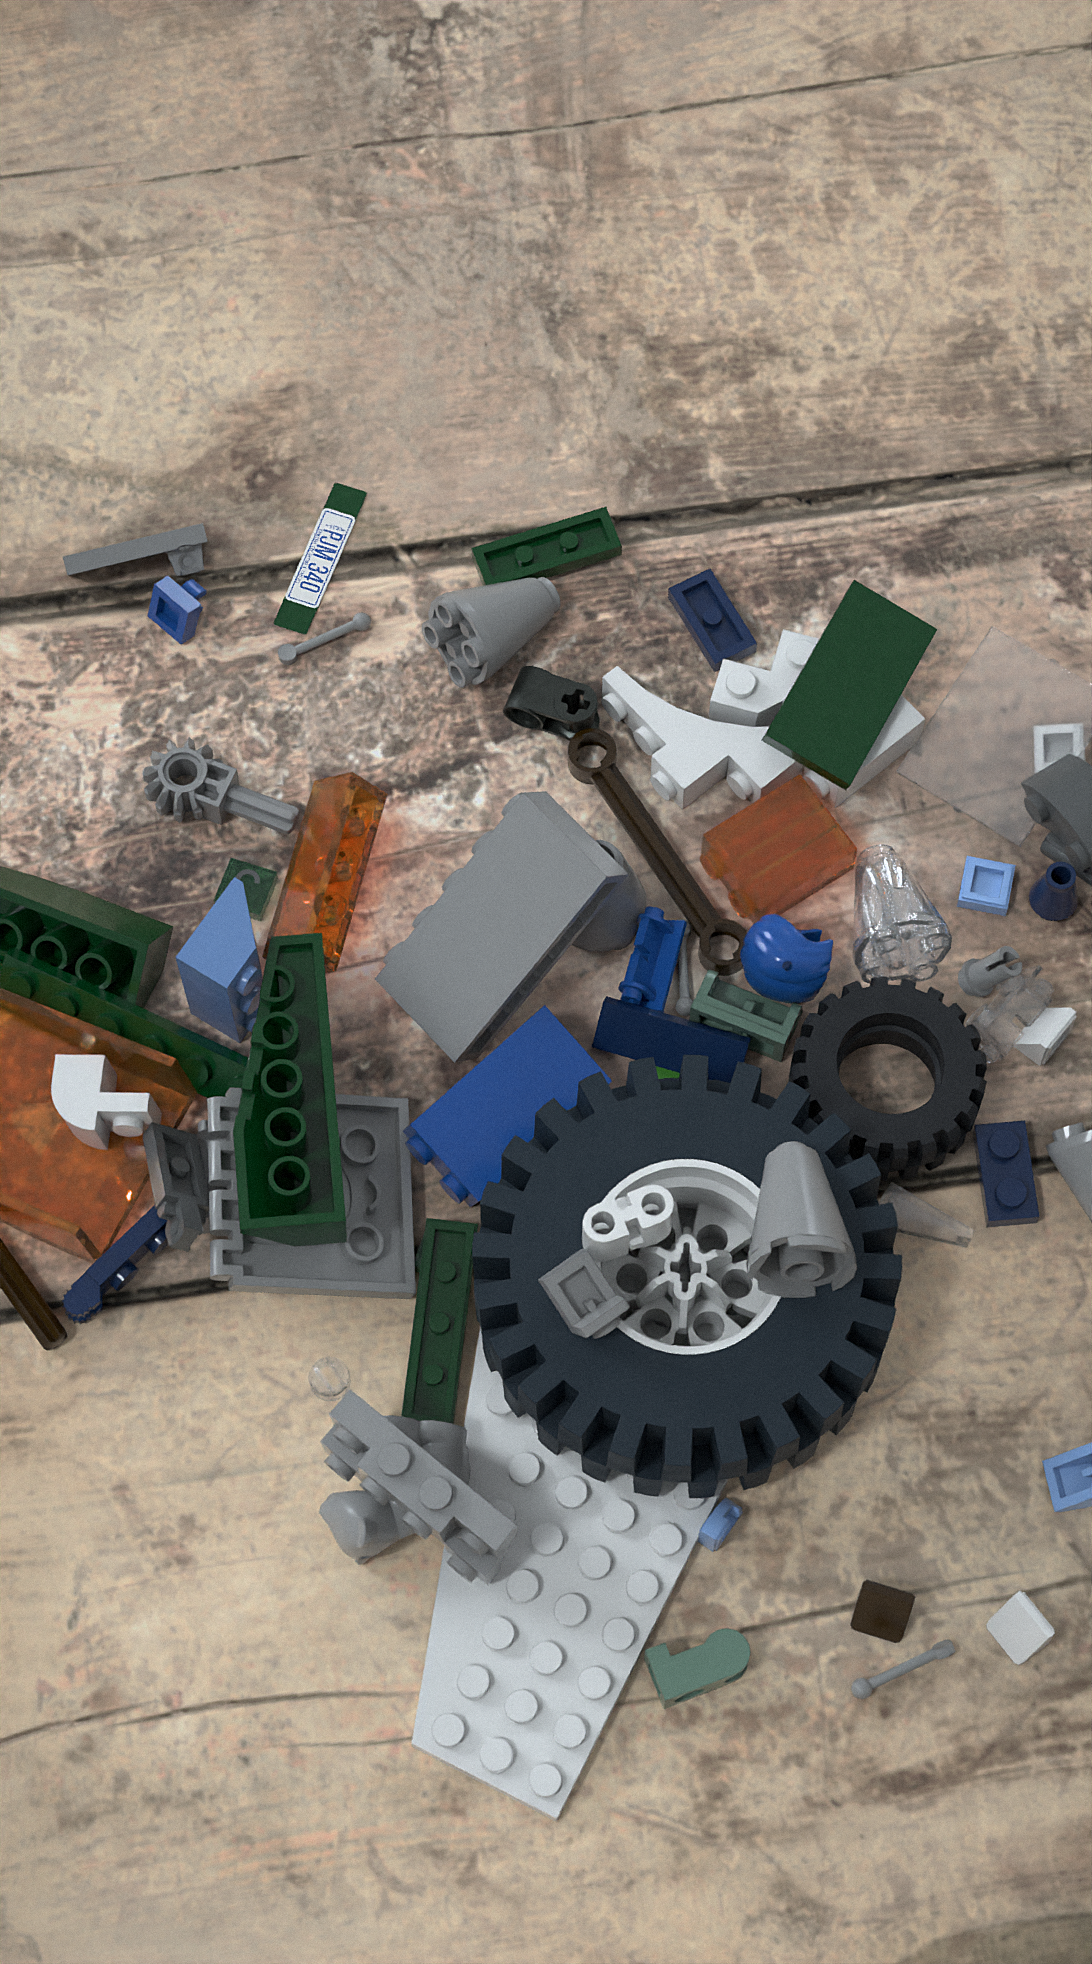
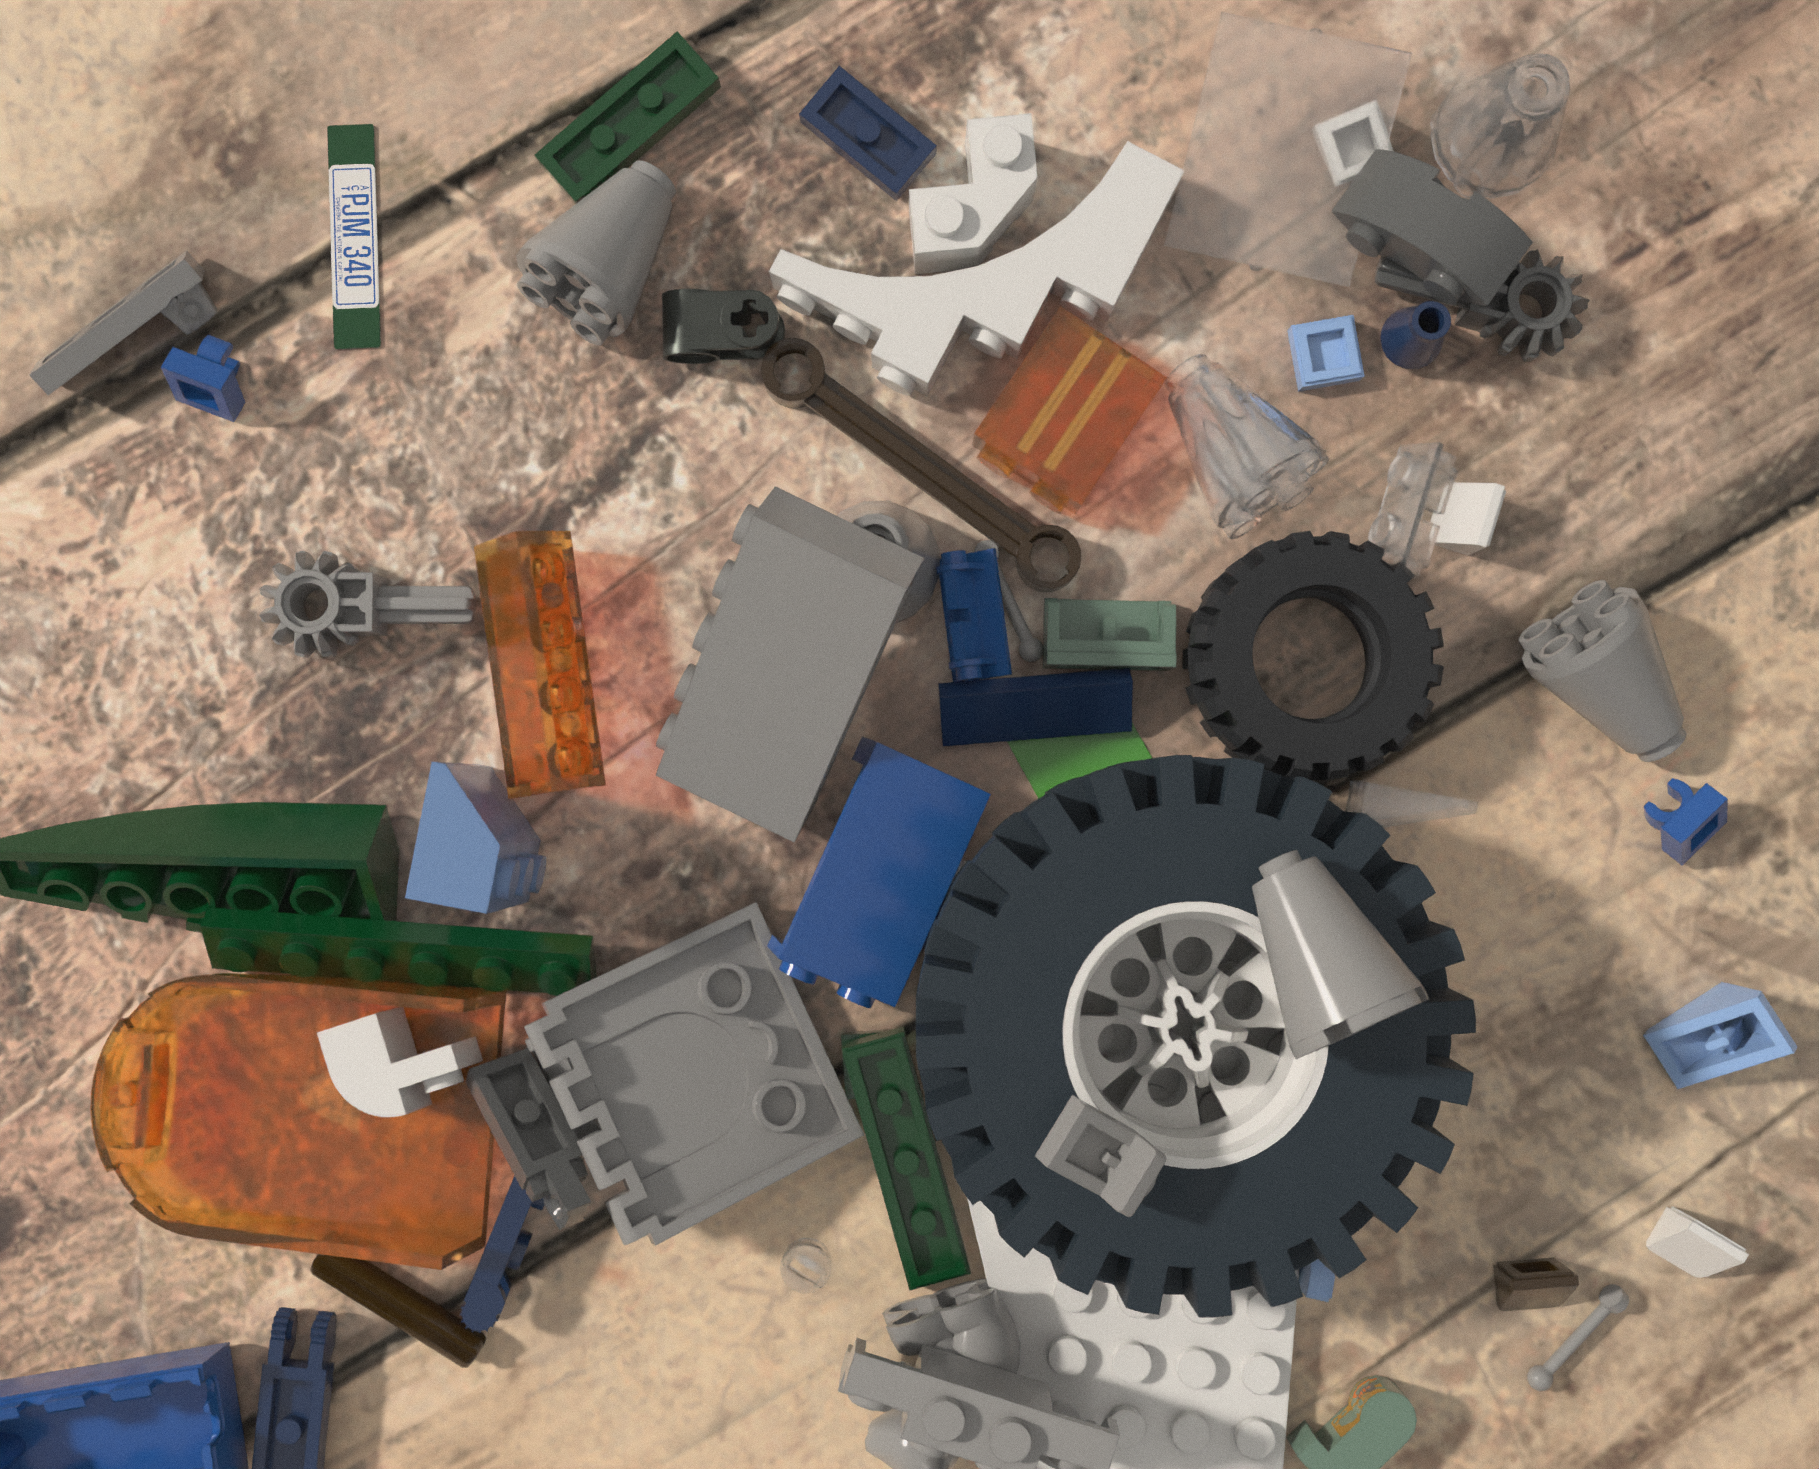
camera: 20 degrees left, 20 degrees up
(257, 883) = (451, 710): clear green tile -> none
(288, 1106) = (625, 1004): dark green wedge -> none
(289, 653) = (371, 381): light grey hinge -> none
(627, 1223) = (1117, 1042): white piece -> none
(785, 961) = (1131, 558): blue piece -> none
(849, 685) = (1080, 164): dark green tile -> none
(980, 976) = (1365, 476): light grey pin -> none
(1005, 1173) = (1482, 710): dark blue plate -> none

